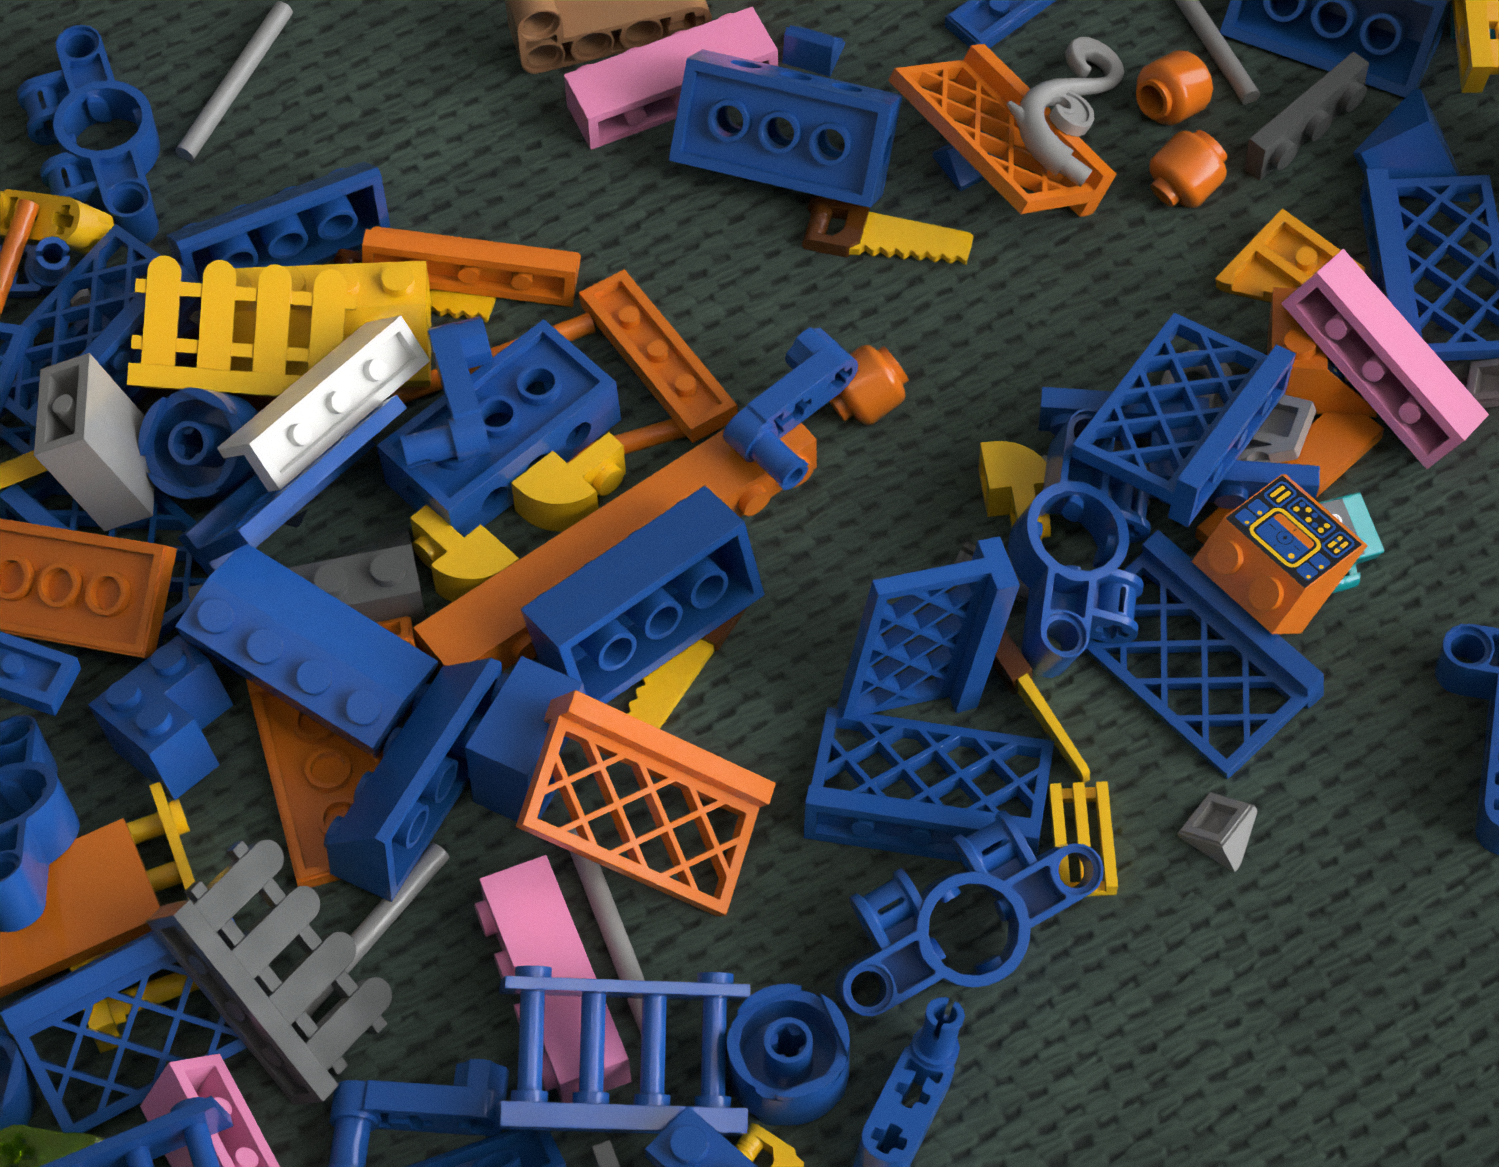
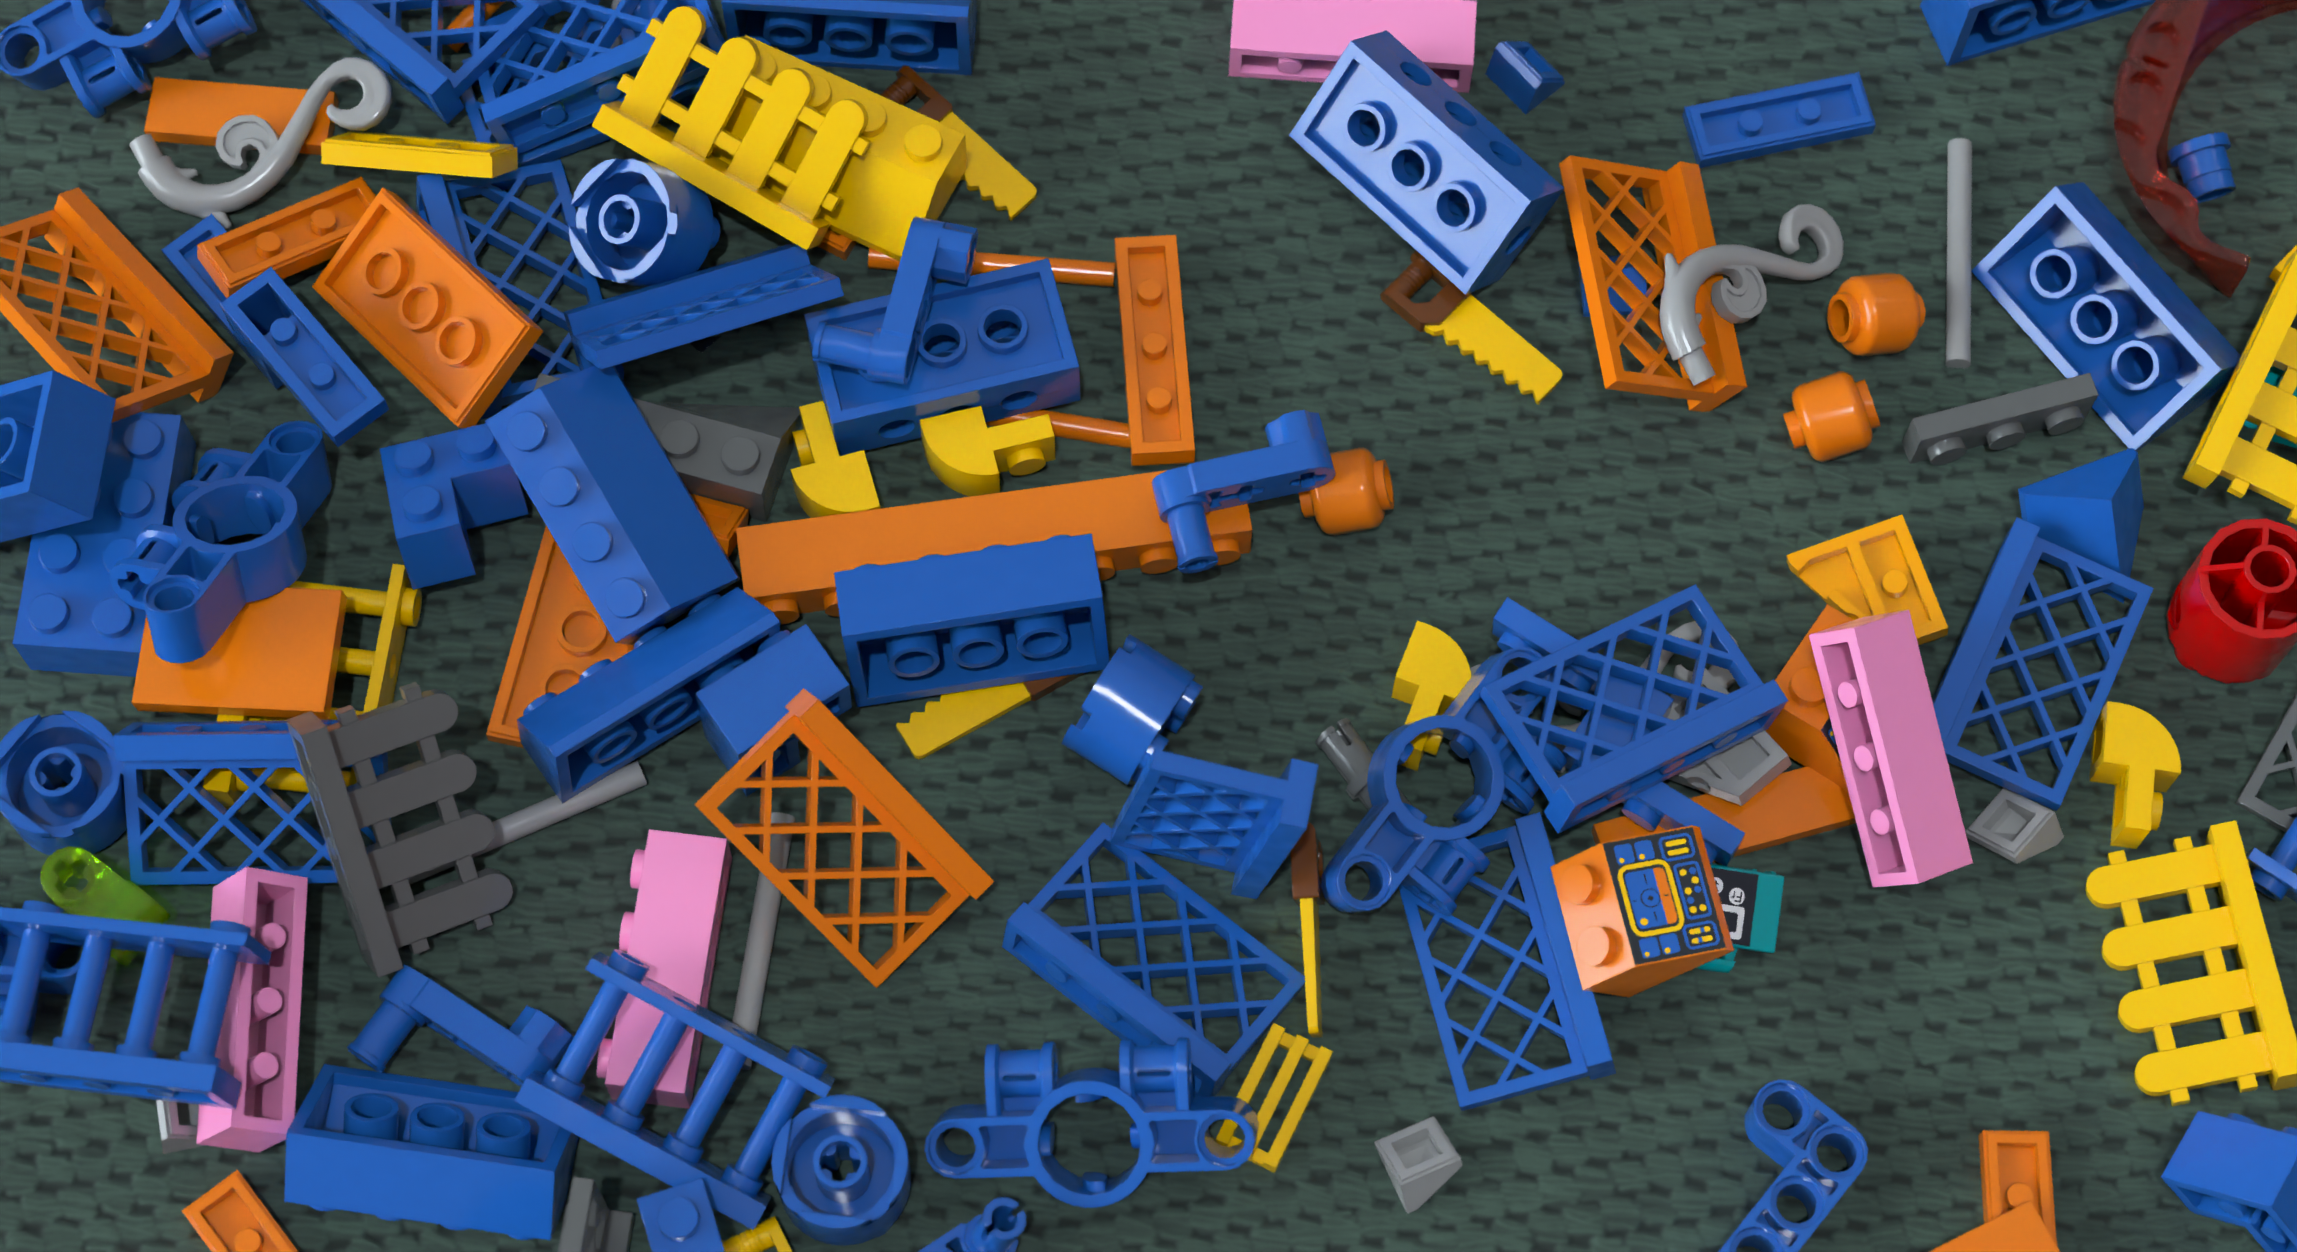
camera: 25 degrees right, 10 degrees up
(91, 442) = (523, 171): light grey brick -> none
(327, 401) = (772, 246): white panel -> none
(480, 265) = (1029, 151): orange panel -> none
(806, 610) = (1131, 708): none -> blue brick

